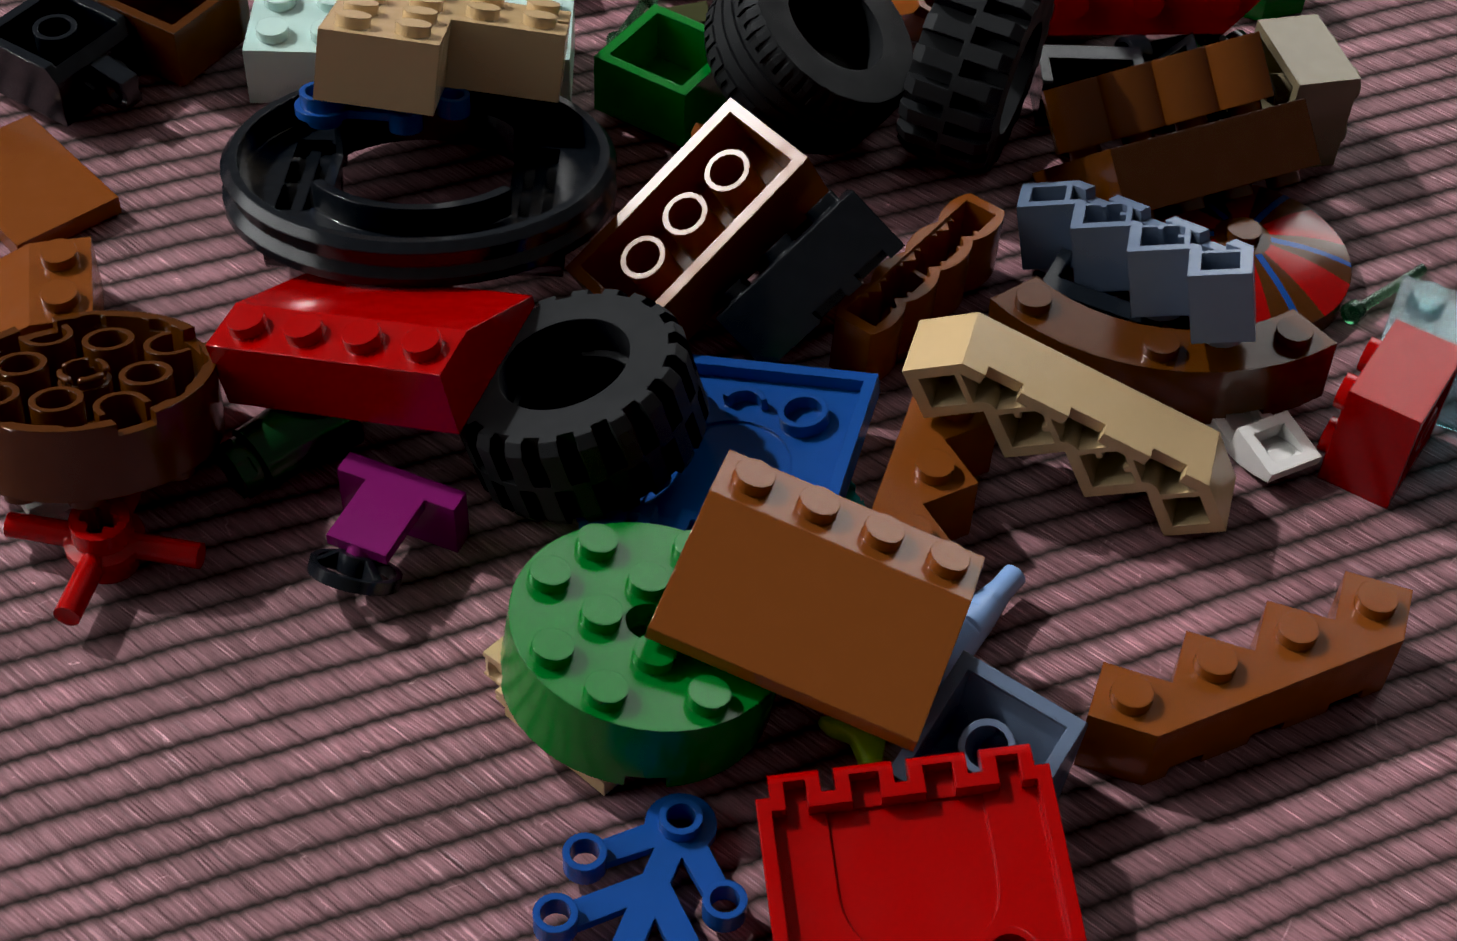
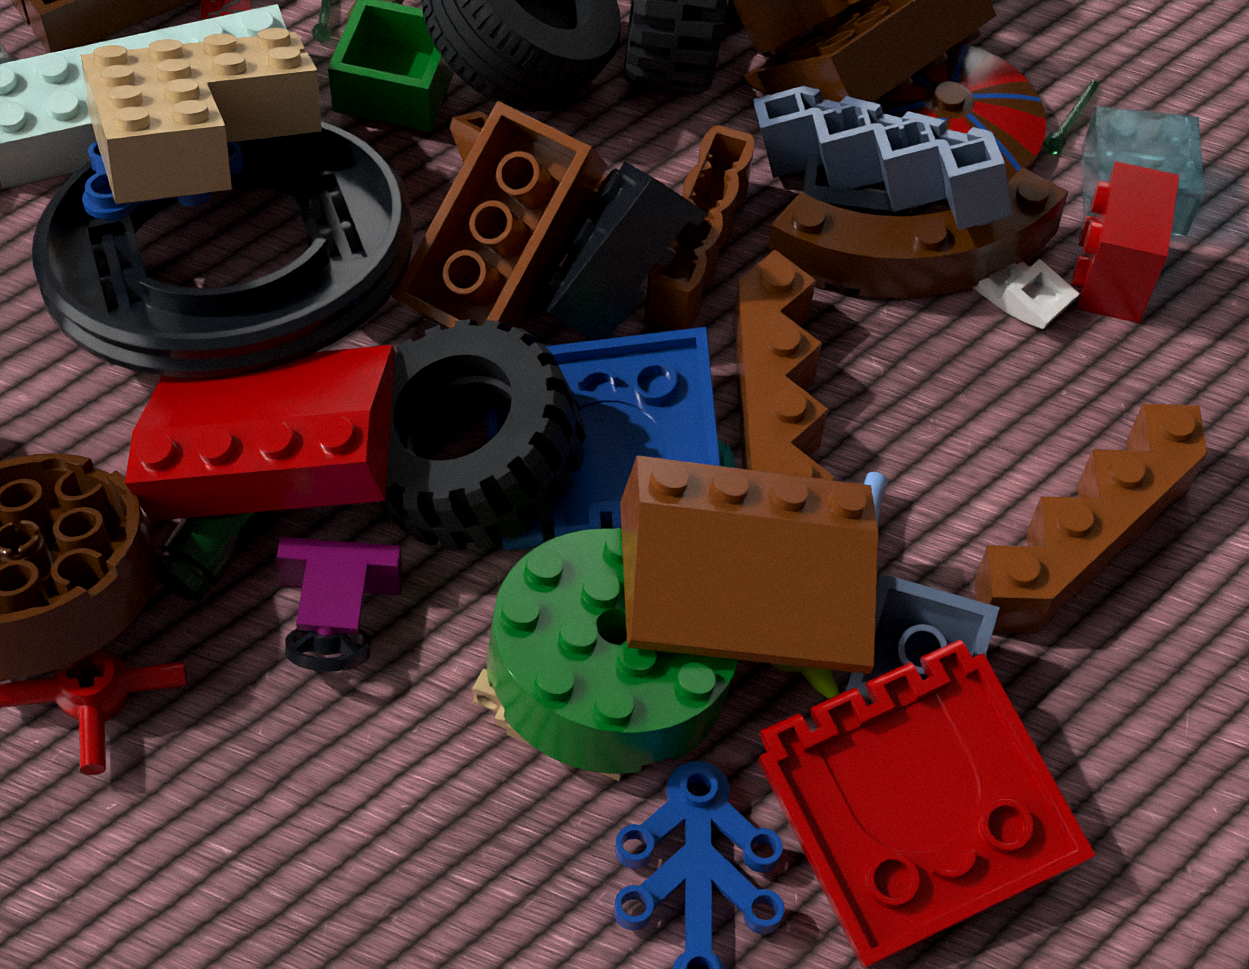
camera: 20 degrees left, 10 degrees up
(1056, 404) = (877, 319): tan brick -> none

